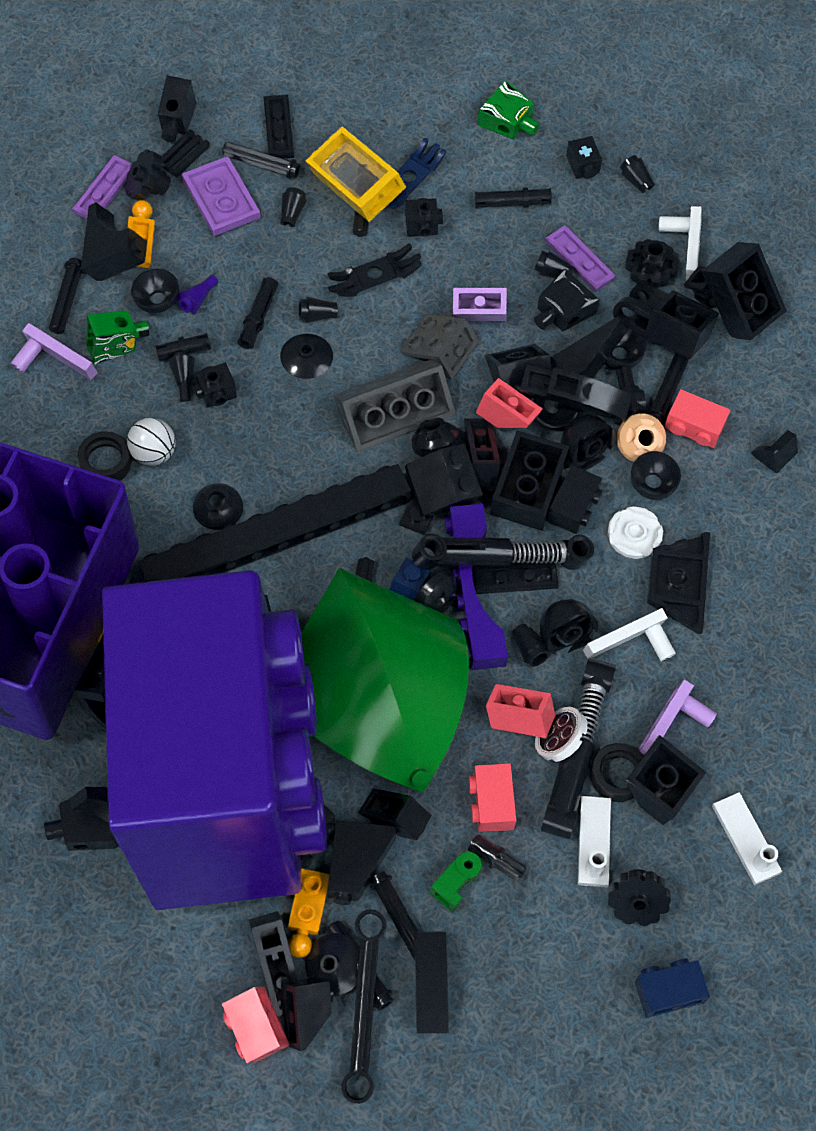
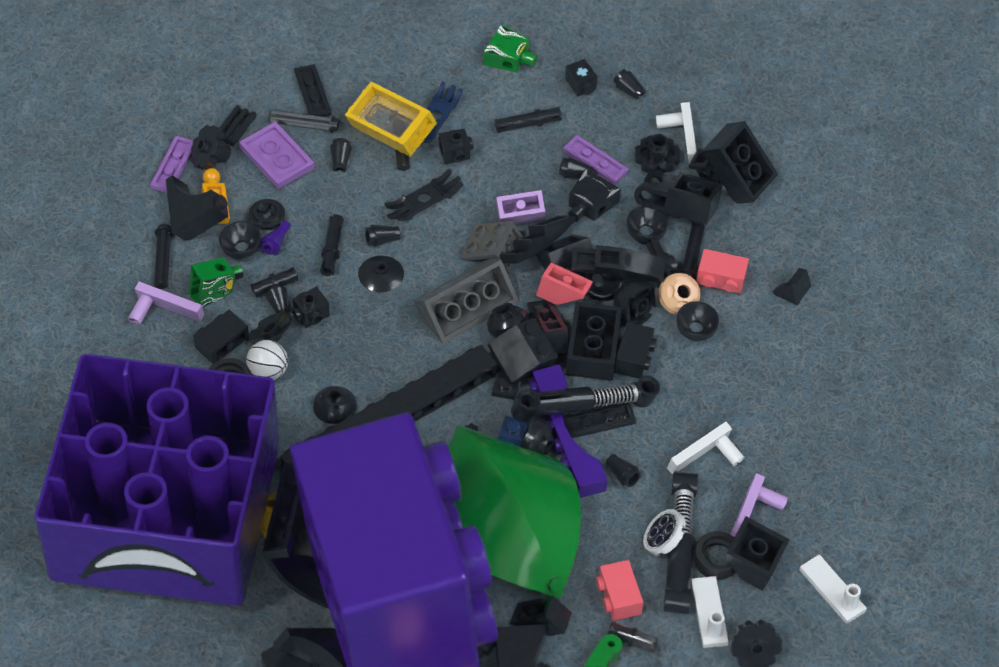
camera: 10 degrees left, 10 degrees down
(107, 403) = (221, 336): none -> black brick
(165, 403) = (270, 328): none -> black dish
(179, 94) = (222, 77): black torso -> none
(190, 255) = (262, 207): none -> black gear
(496, 342) = (540, 237): none -> black slope
(520, 710) = (627, 519): coral brick -> none
(571, 621) = (653, 444): black cylinder -> none
(591, 351) = (625, 228): black slope -> none
(639, 538) = (691, 376): white tile -> none
(680, 580) = (735, 400): black wing -> none

